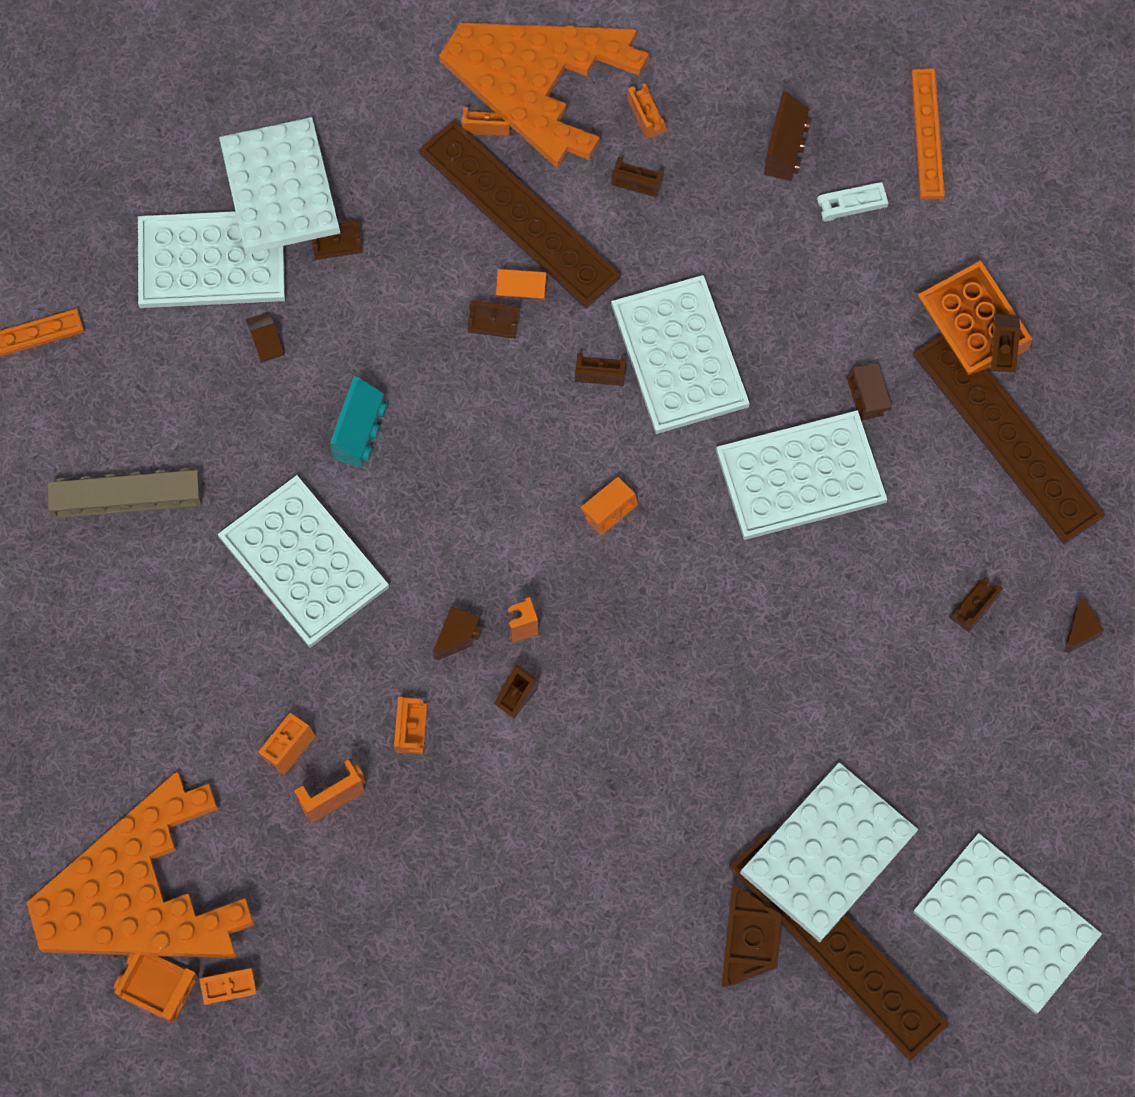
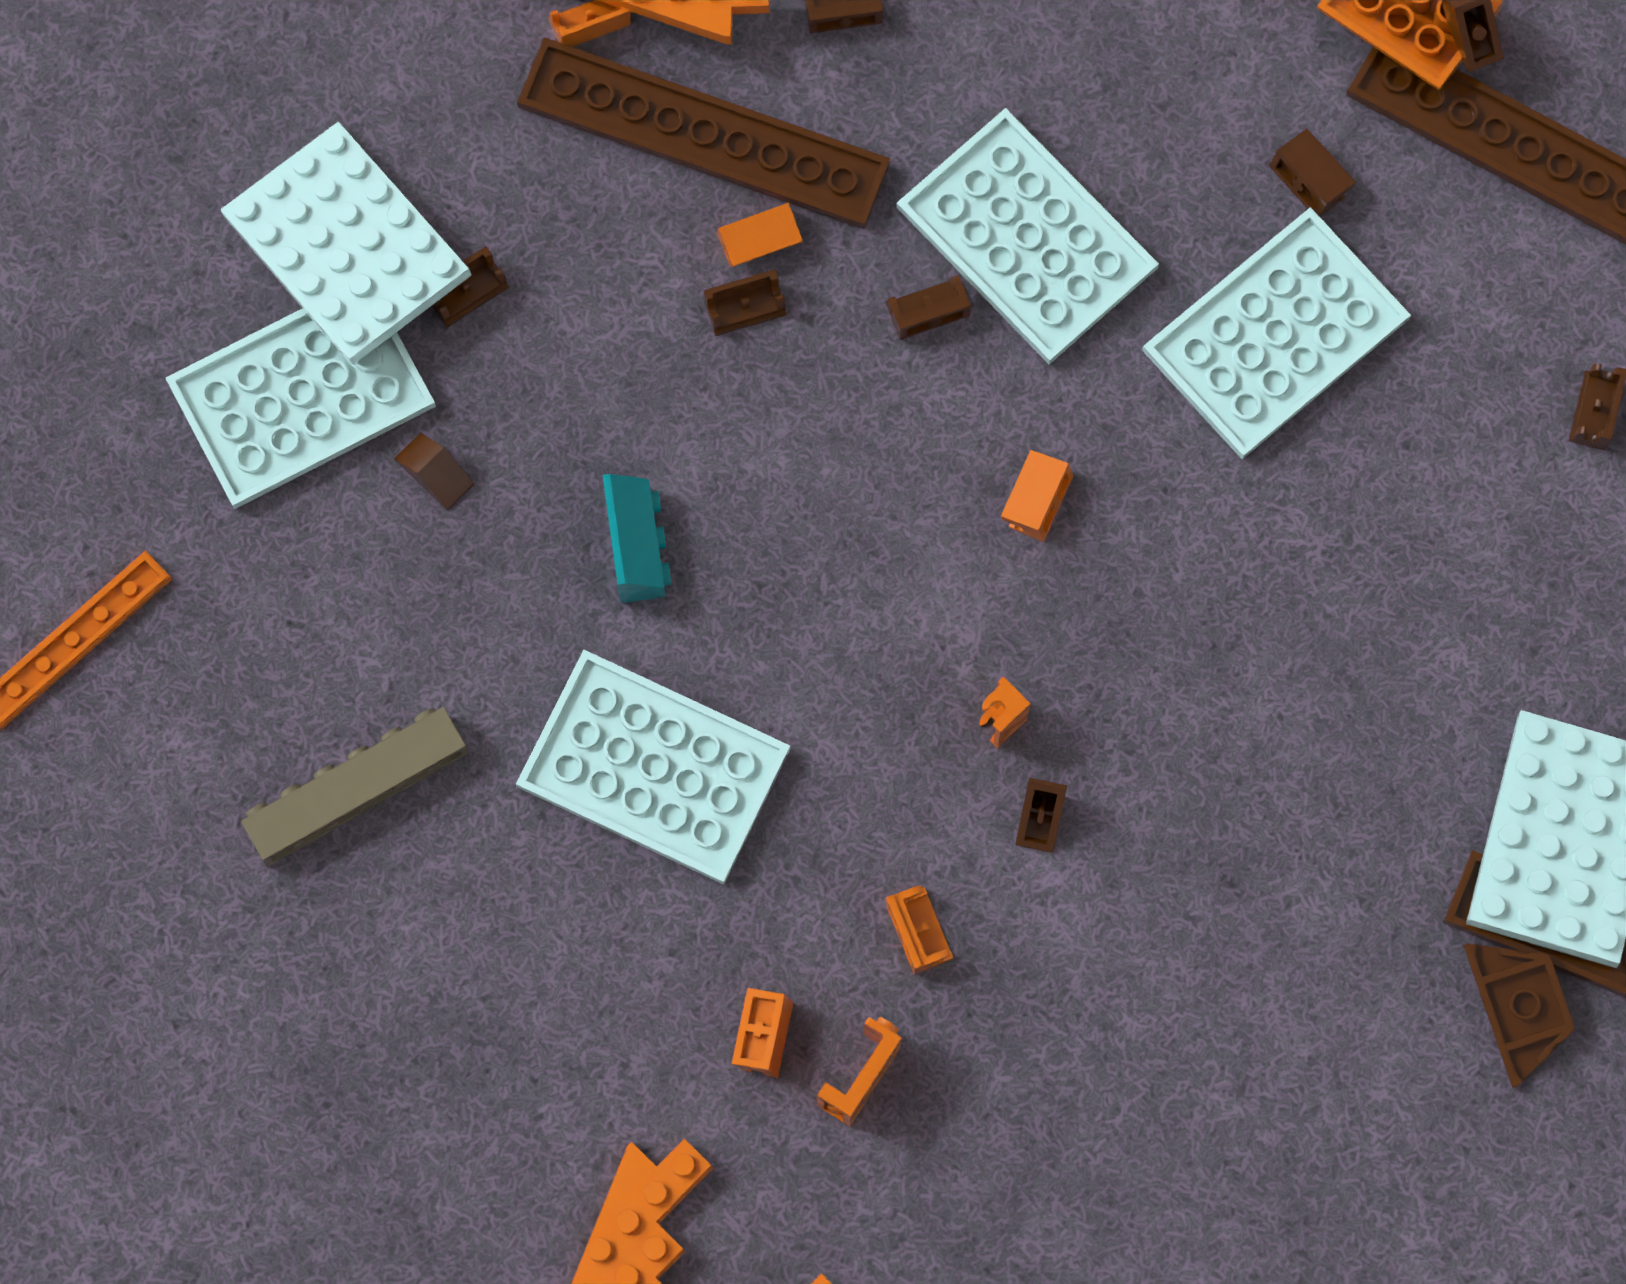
camera: 25 degrees left, 5 degrees up
(457, 633) = (919, 769): reddish brown slope -> none

